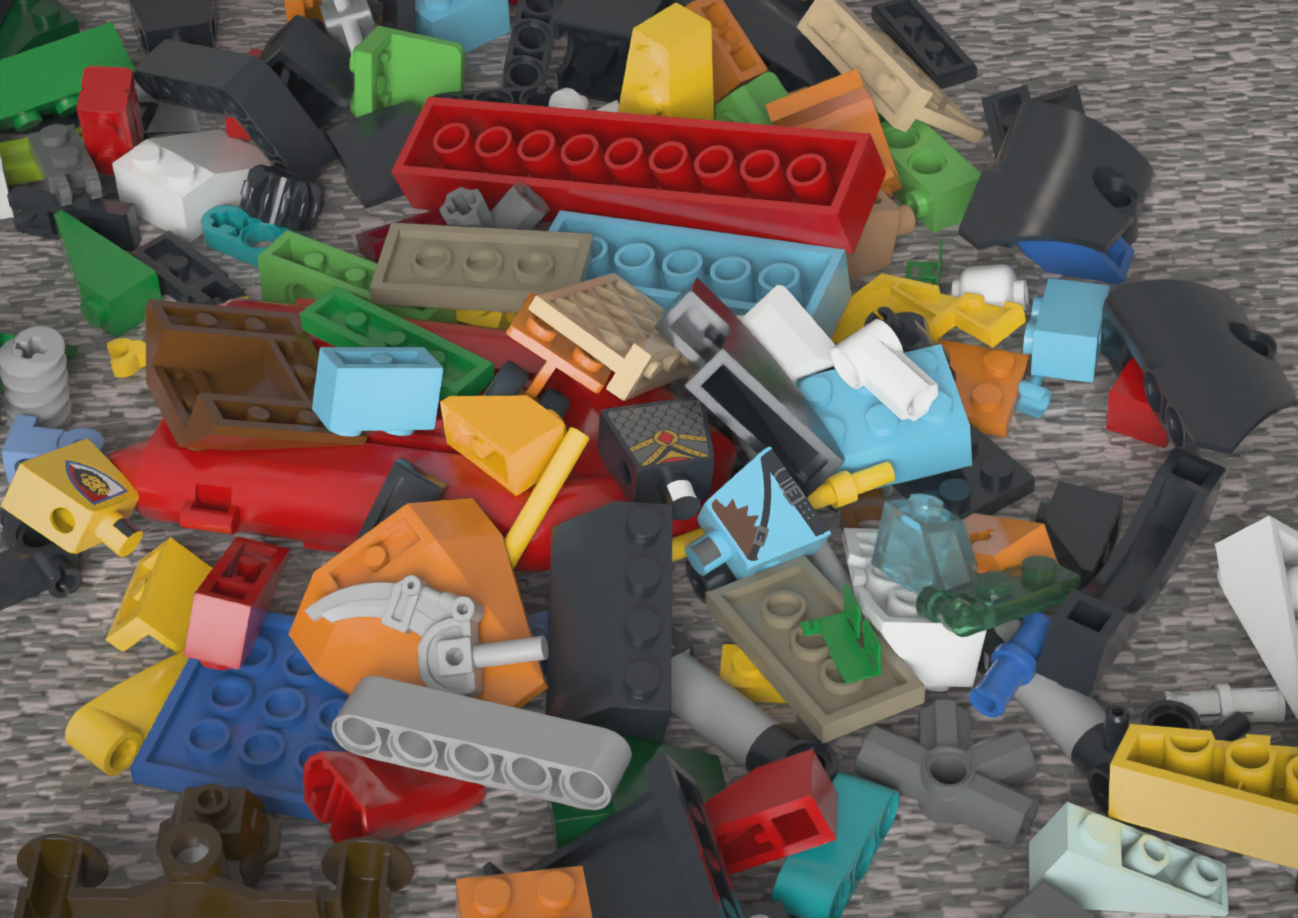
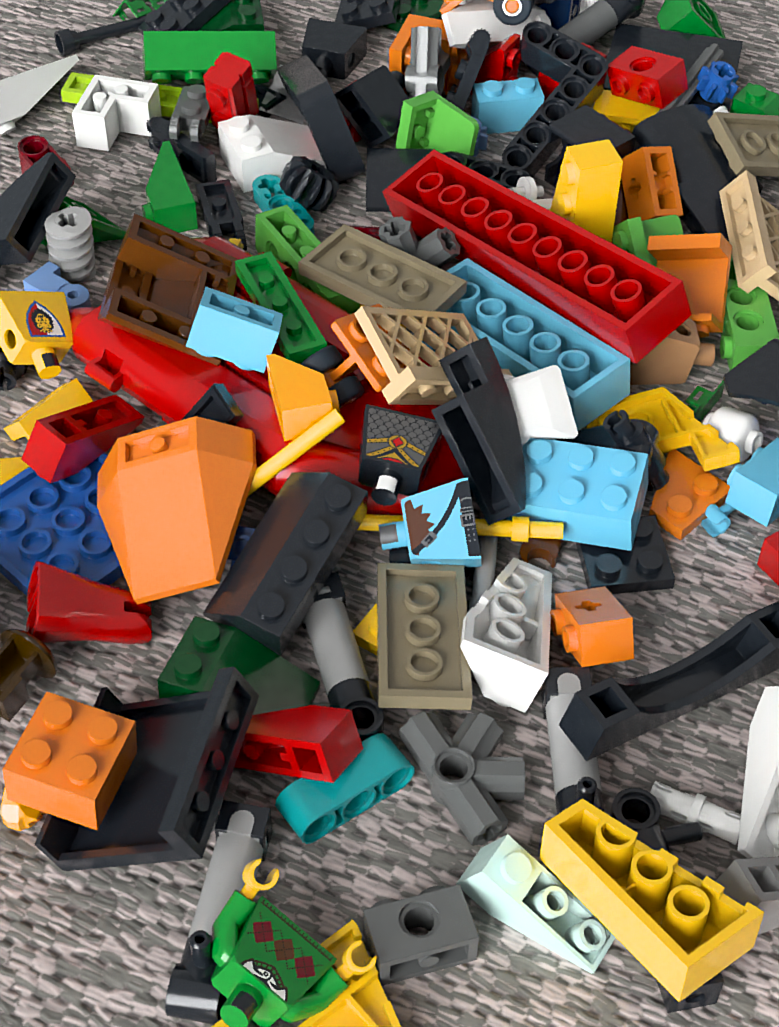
camera: 25 degrees right, 5 degrees up
(450, 645) = (162, 528): light grey bar -> none
(482, 742) = (141, 604): light grey beam -> none
(841, 639) = (442, 632): green piece -> none
(878, 362) = (586, 450): white piece -> none
(923, 545) = (541, 604): clear light blue slope -> none
(998, 596) = (562, 656): clear green plate -> none
(1011, 667) = (542, 714): blue pin -> none
(1082, 527) = (677, 630): black slope -> none

